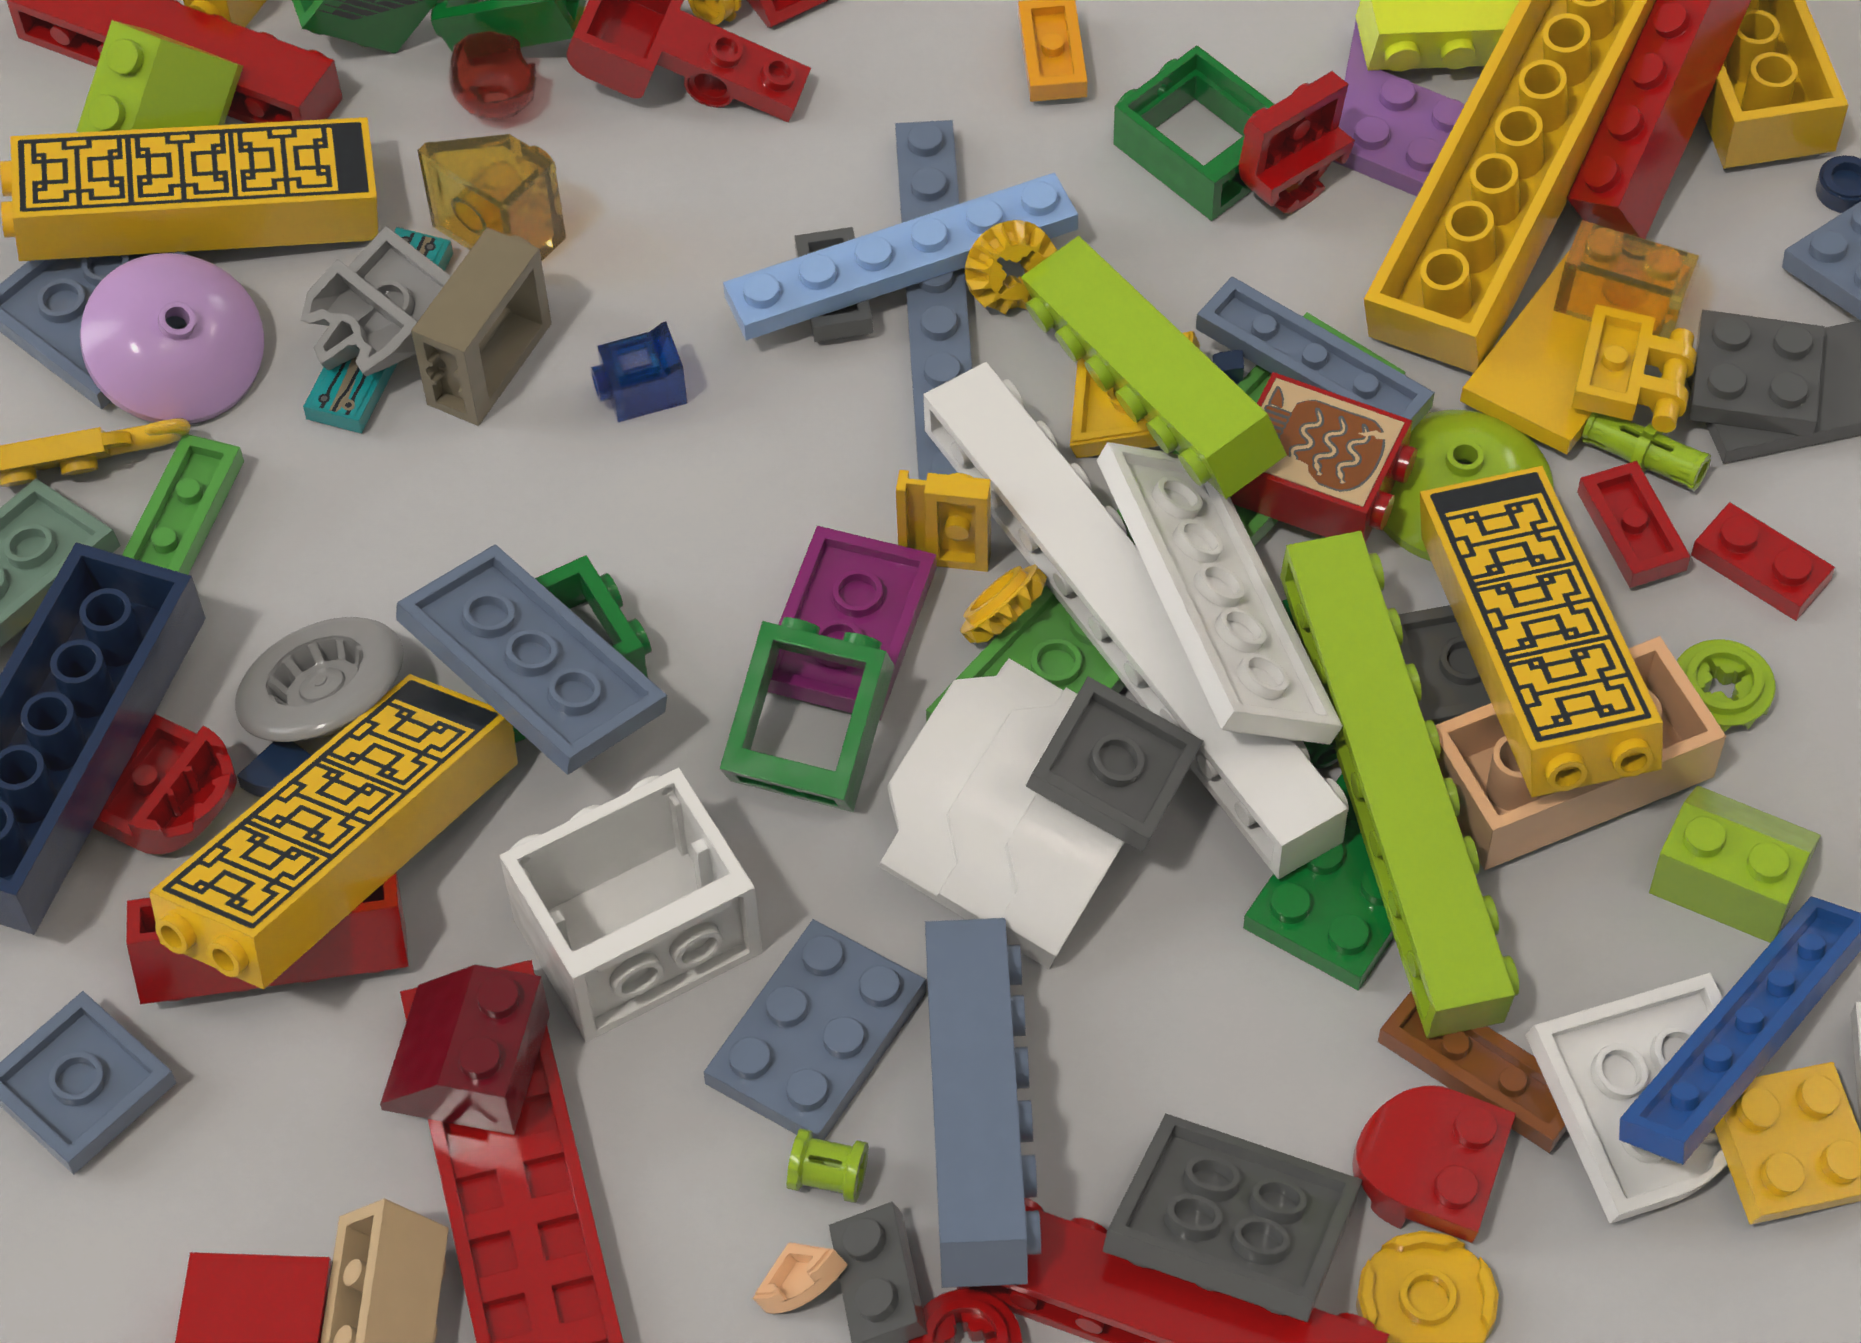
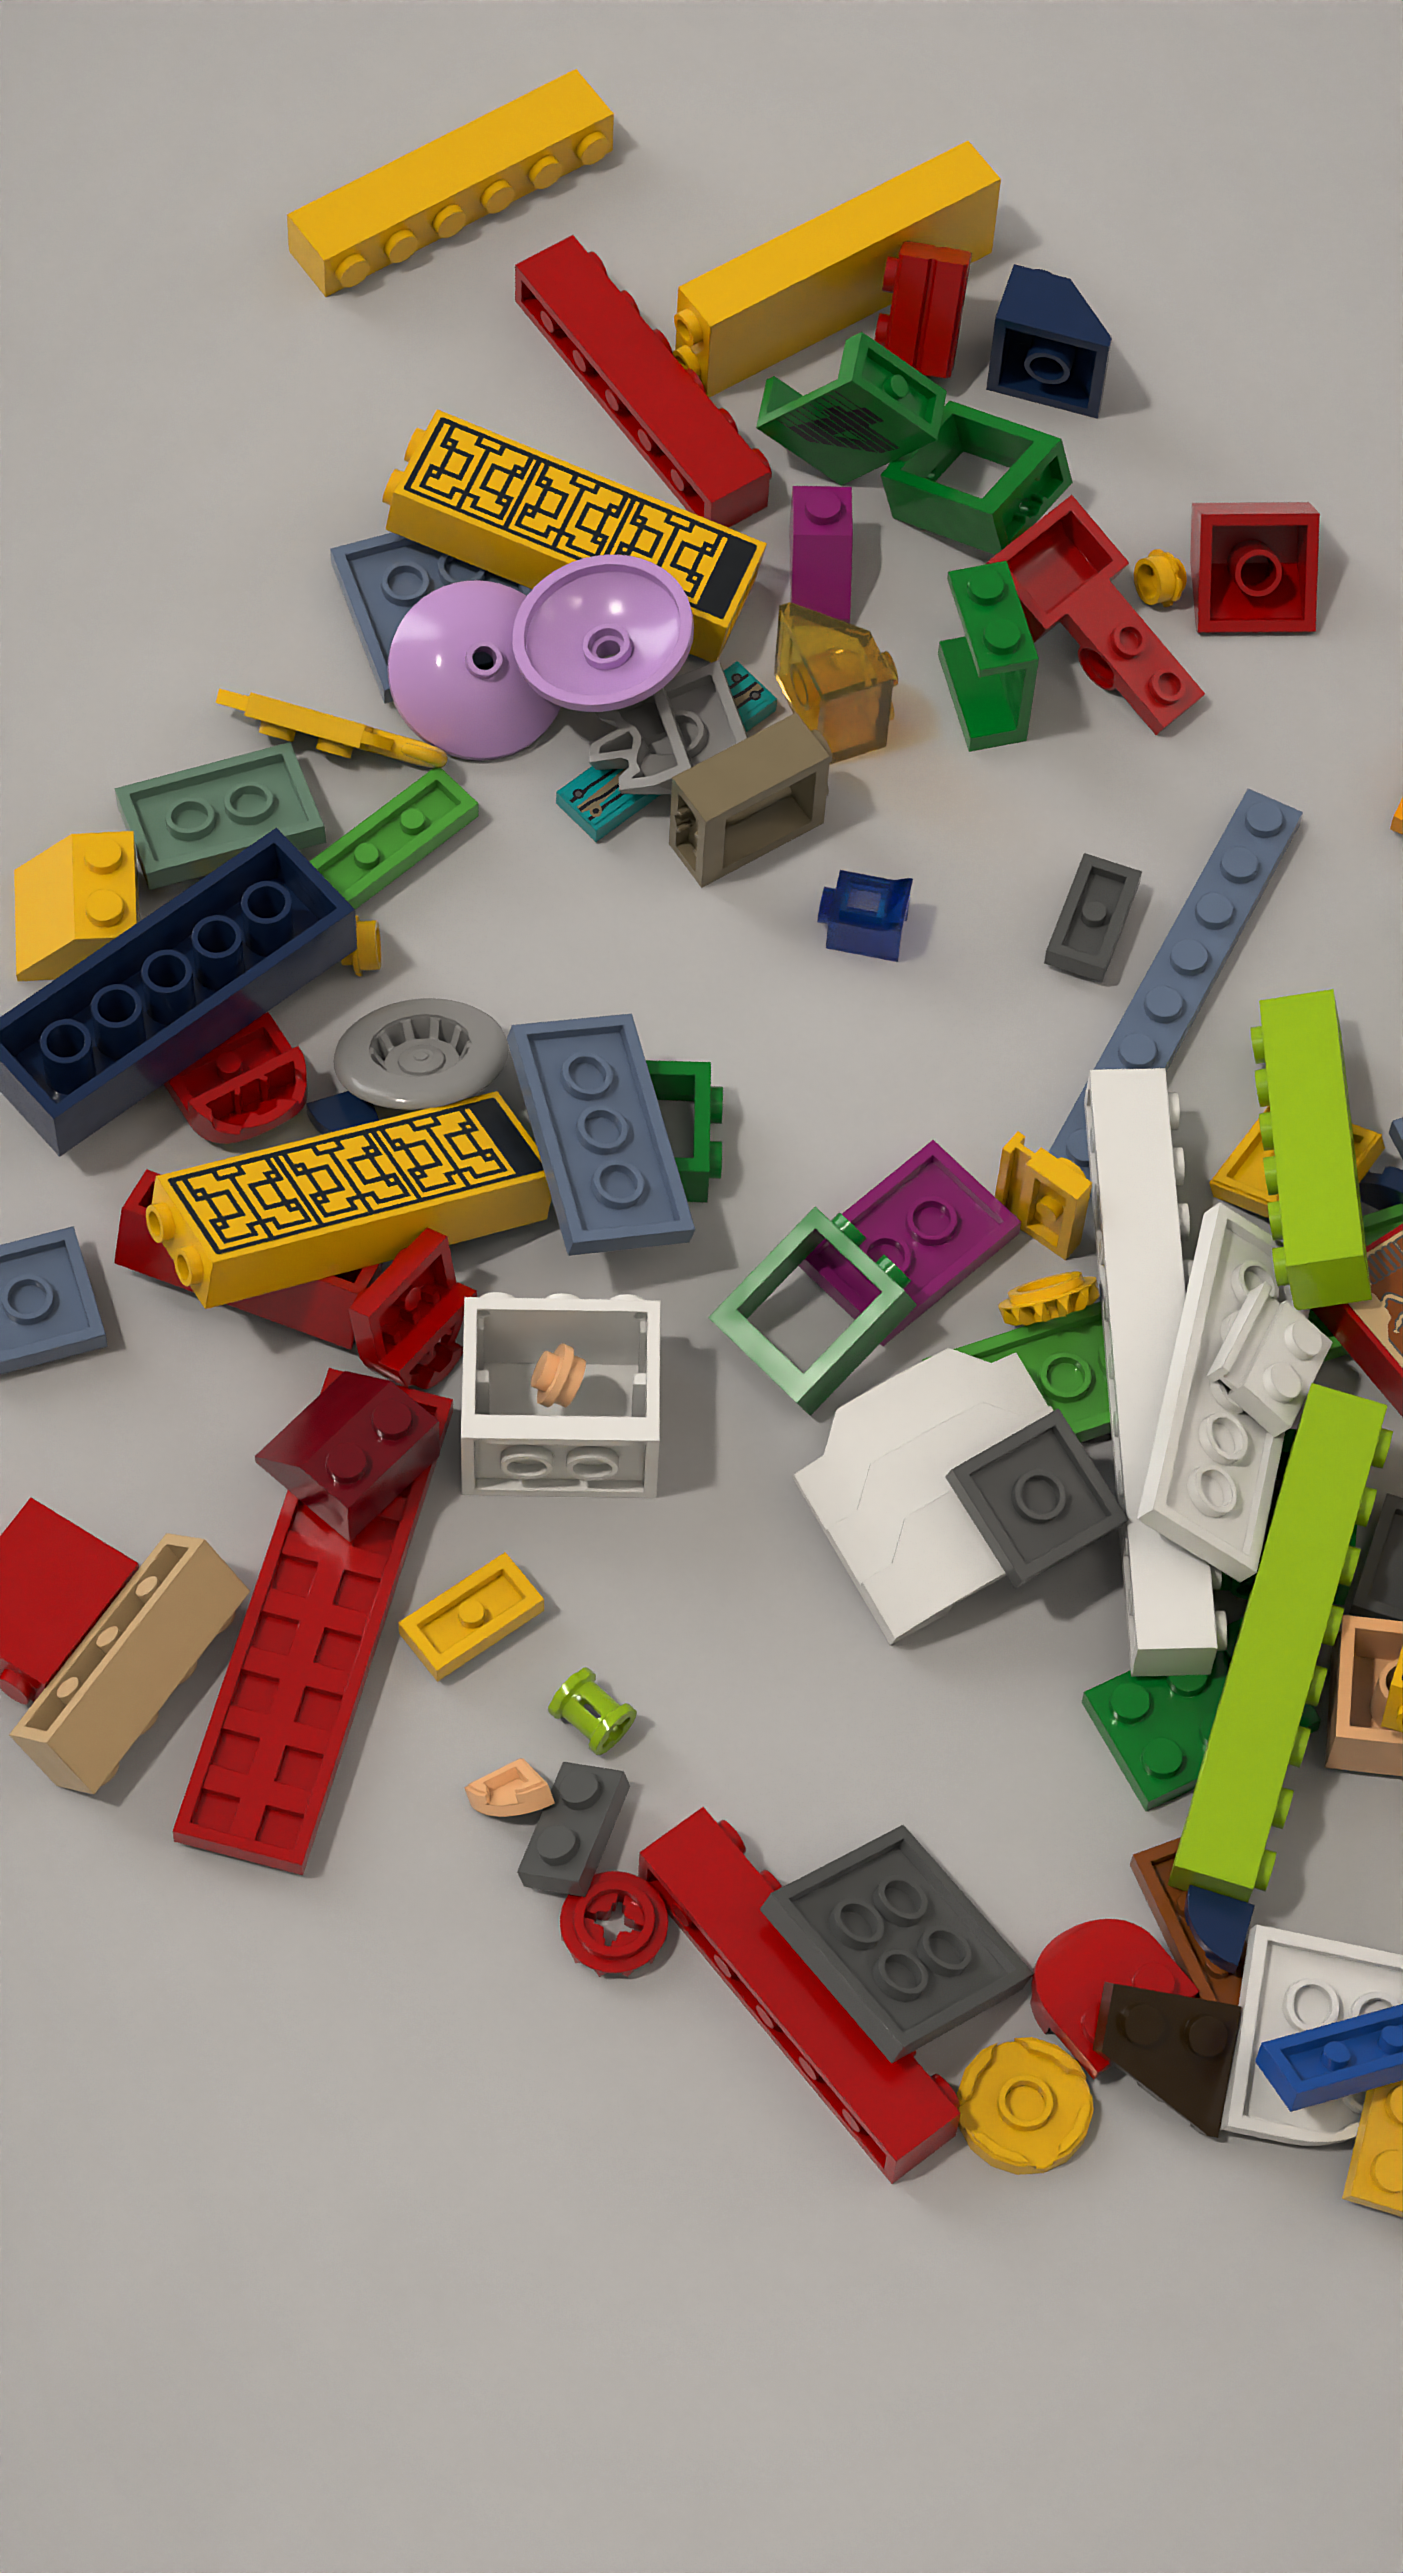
camera: 25 degrees right, 5 degrees up
(156, 83) = (597, 419): lime slope -> none
(215, 624) = (368, 950): none -> yellow plate
(273, 246) = (598, 611): none -> lavender dish
(411, 99) = (821, 549): none -> magenta slope
(452, 901) = (412, 1315): none -> red slope
(491, 76) = (906, 555): clear red hair -> none
(622, 884) = (558, 1376): none -> light nougat plate
(633, 127) = (996, 661): none -> green panel
(664, 1142) = (471, 1616): none -> yellow plate
(815, 1031) = (656, 1591): sand blue plate -> none
(889, 257) = (1166, 923): light blue plate -> none
(977, 1104) = (739, 1725): sand blue brick -> none
(1011, 241) = (1266, 963): yellow gear -> none
(1234, 547) = (1270, 1359): none -> white plate
(1495, 1046) = (1218, 1925): none -> dark blue tile
(1528, 1174) = (1172, 2048): none -> dark brown wing

